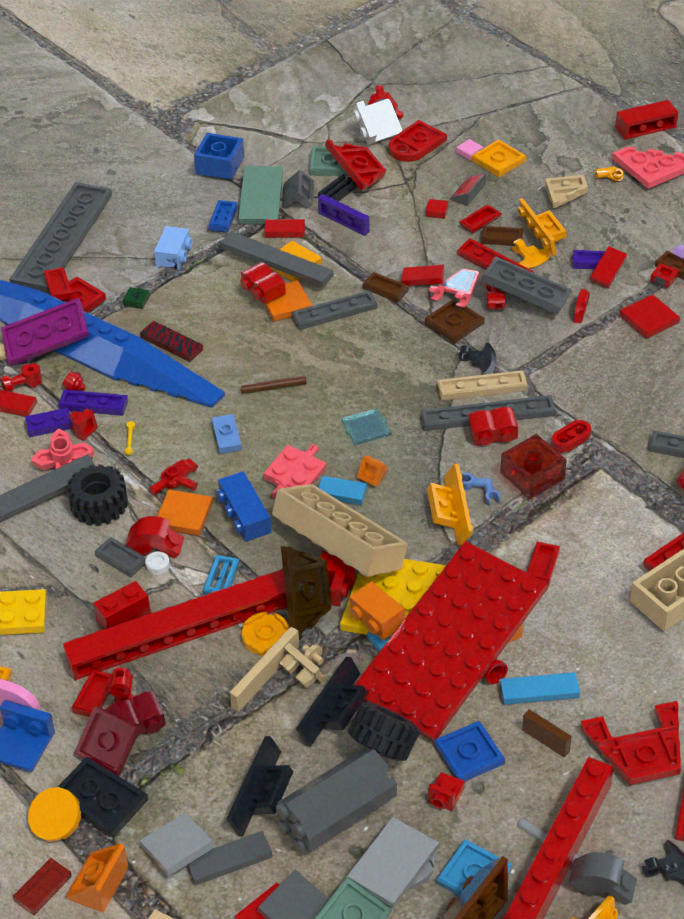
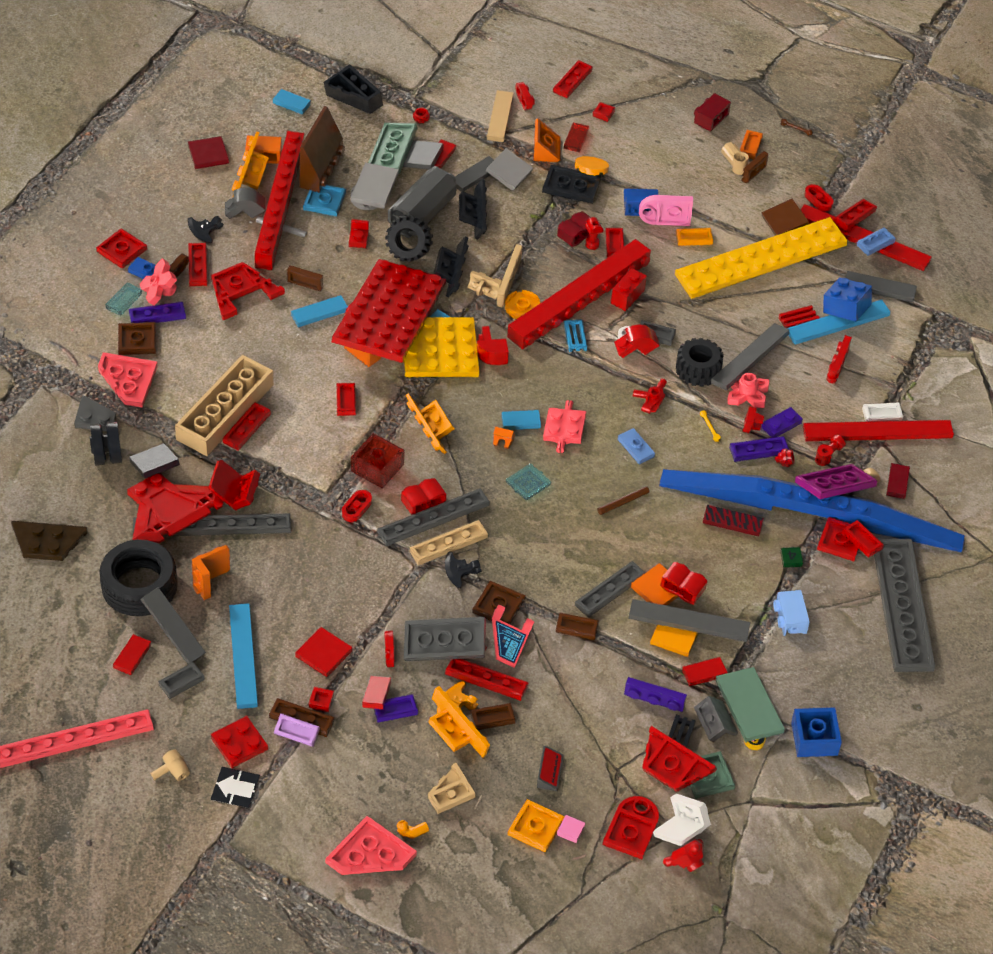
camera: 155 degrees right, 5 degrees up
(107, 740) = (585, 206): dark red tile -> none
(186, 511) = (630, 375): orange tile -> none
(223, 216) = (770, 667): blue plate -> none
(243, 506) = (586, 383): blue brick -> none
(305, 588) = (507, 313): dark brown wing -> none
(339, 530) = (502, 359): tan brick -> none
(376, 610) = (448, 314): orange brick -> none
(423, 275) = (547, 641): red tile -> none
(437, 208) = (570, 735): red tile -> none
(469, 751) = (352, 263): blue tile -> none
(480, 218) = (522, 731): red tile -> none
(481, 482) = (424, 451): medium blue arm -> none
(646, 119) = (394, 919): red brick -> none

